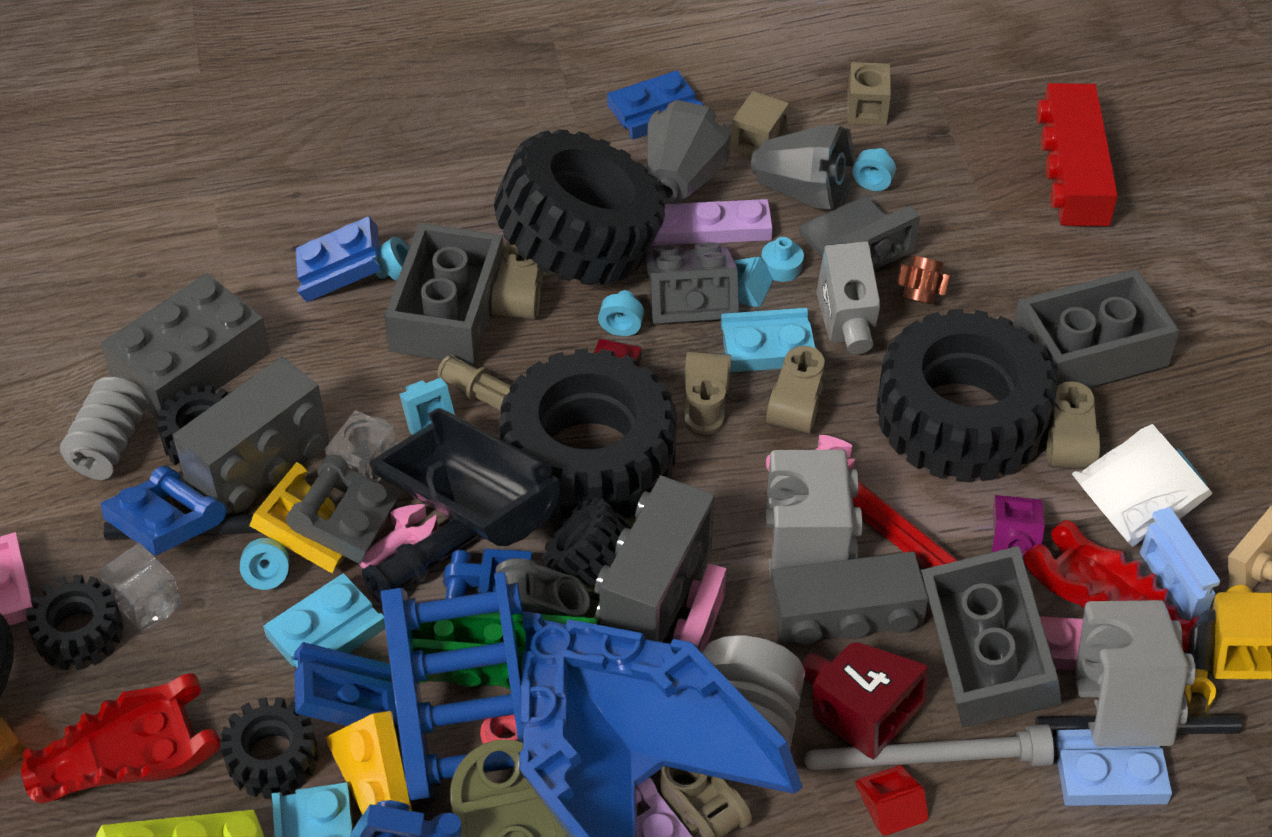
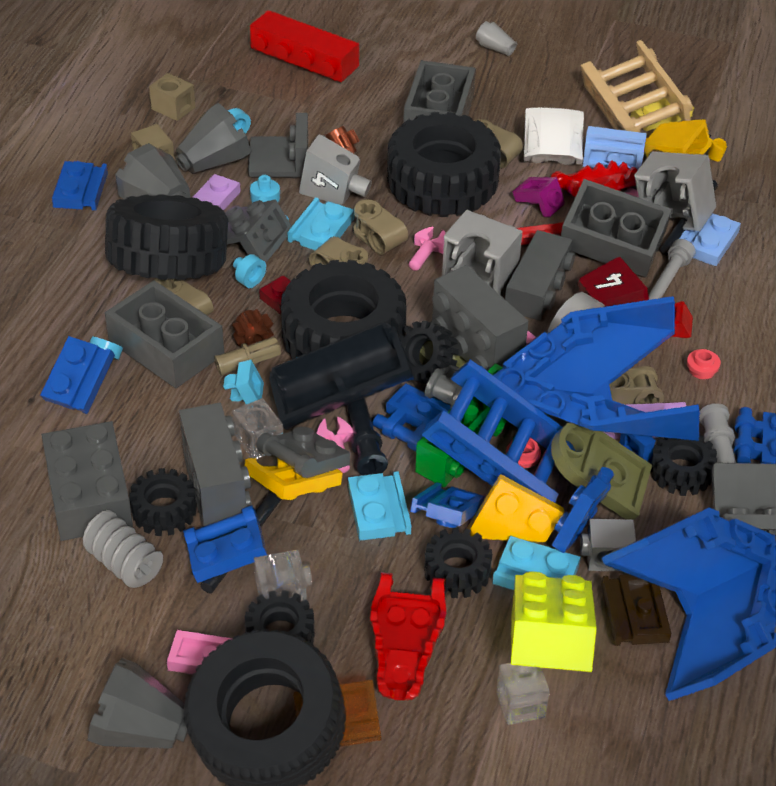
camera: 60 degrees left, 5 degrees down
(260, 572) = (311, 510): medium azure tile -> none
(515, 359) = (252, 327): none -> copper gear

